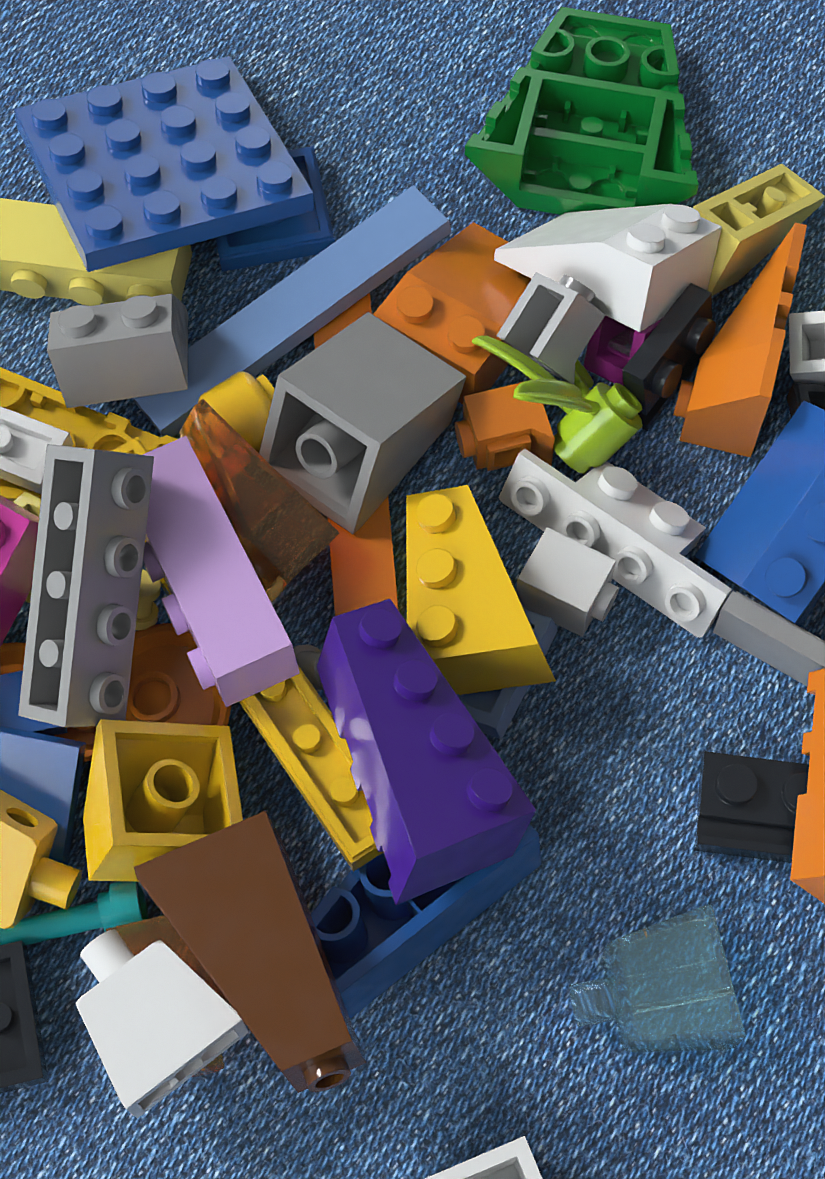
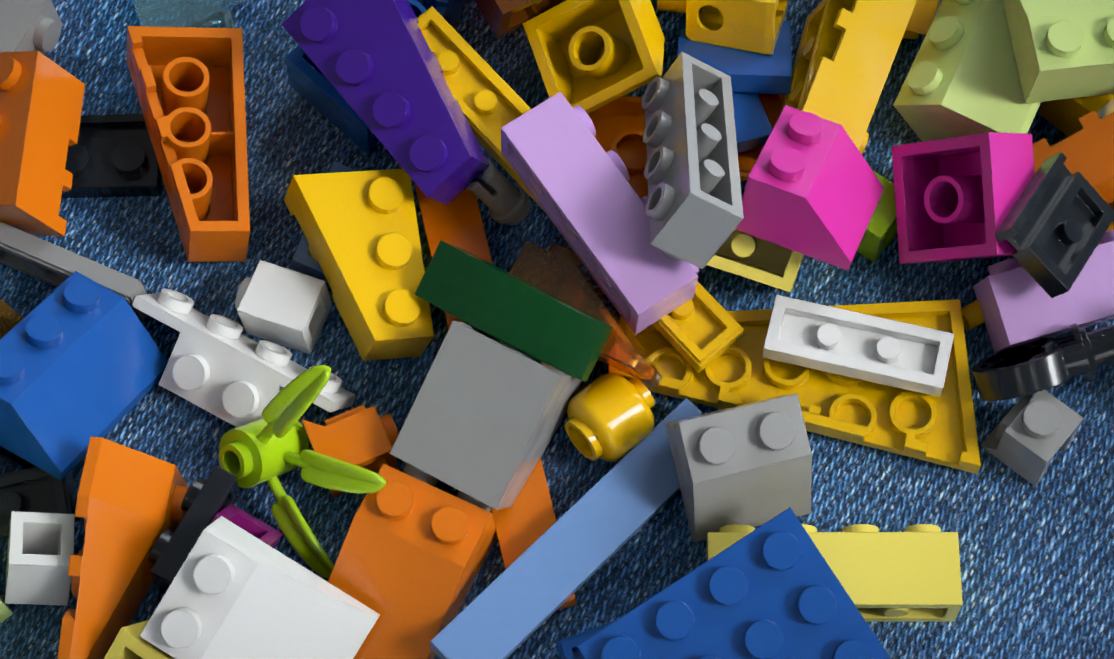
camera: 175 degrees right, 0 degrees up
(318, 485) = (513, 310): none -> dark green slope
(552, 323) = (303, 522): light grey window -> none
(650, 803) = (196, 122): none -> orange wedge

